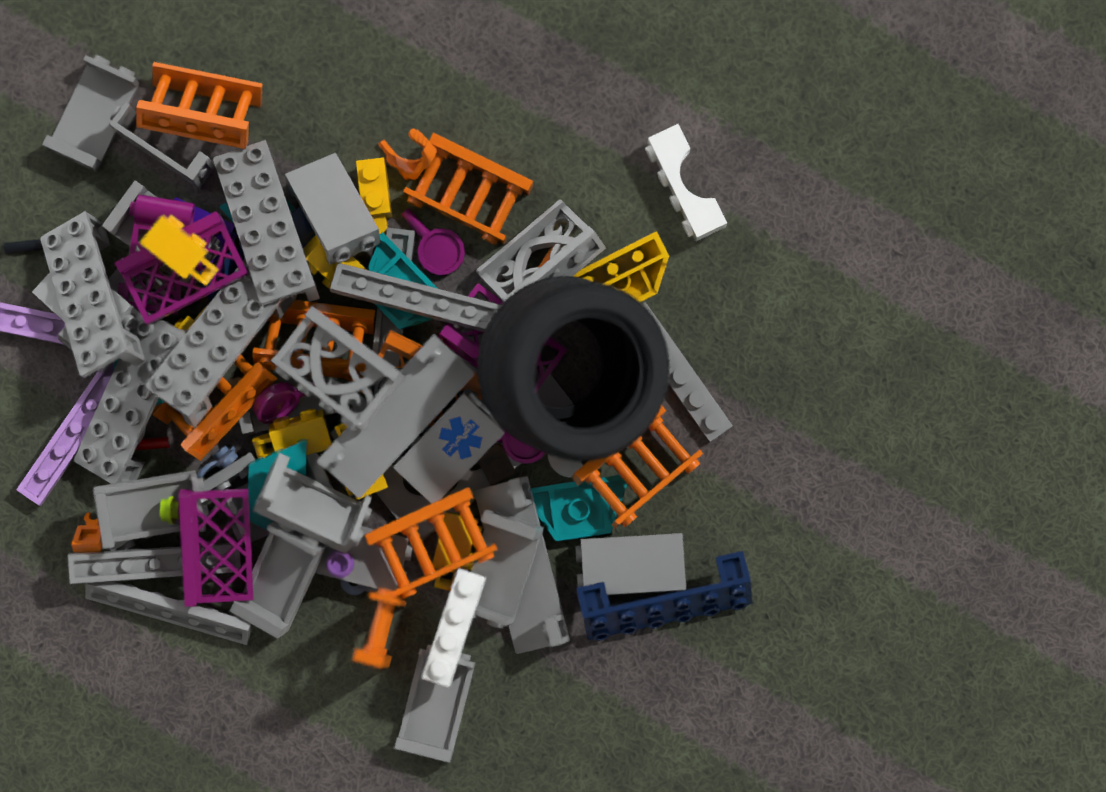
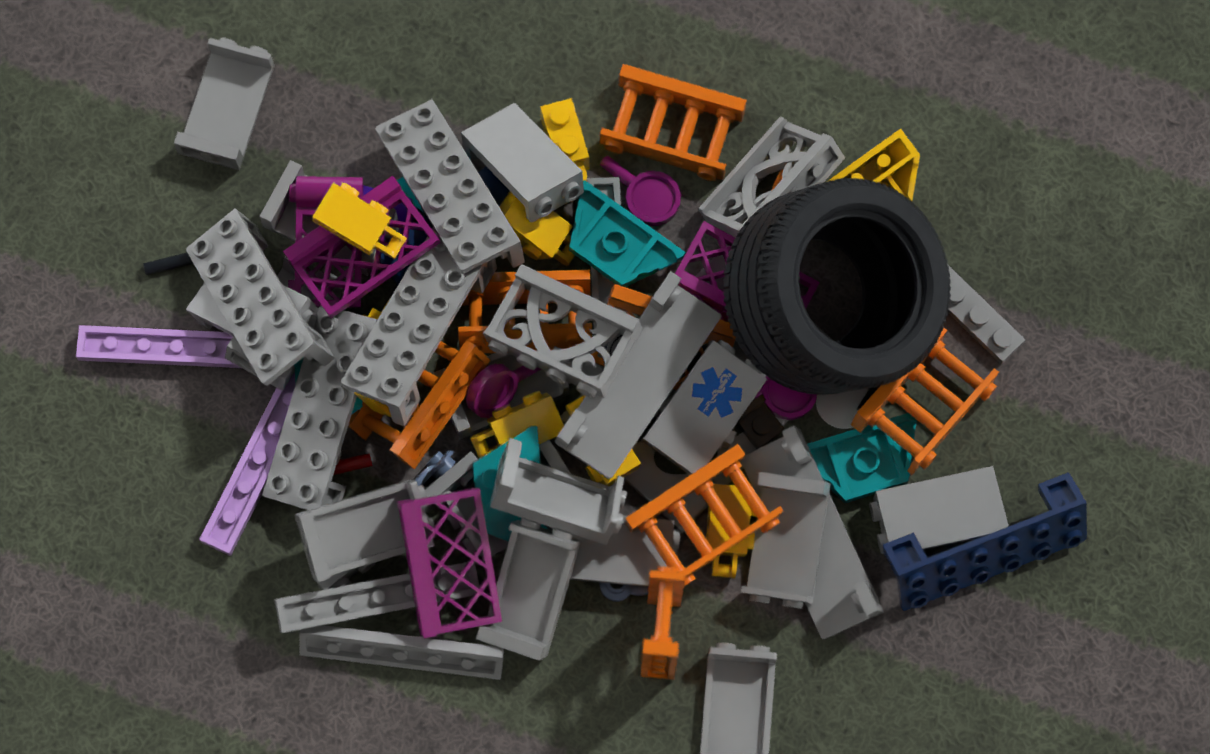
camera: 15 degrees left, 10 degrees down
(88, 536) = (295, 578): orange plate -> none
(169, 510) = (389, 527): lime plate -> none
(196, 124) = (349, 90): orange fence -> none
(196, 173) = (349, 151): light grey panel -> none
(339, 564) = (599, 560): medium lavender plate -> none
(411, 168) = (606, 110): orange helmet -> none
(412, 297) = (633, 244): light grey plate -> none
(454, 627) = (748, 612): white arch -> none
(700, 214) = (943, 111): white arch -> none

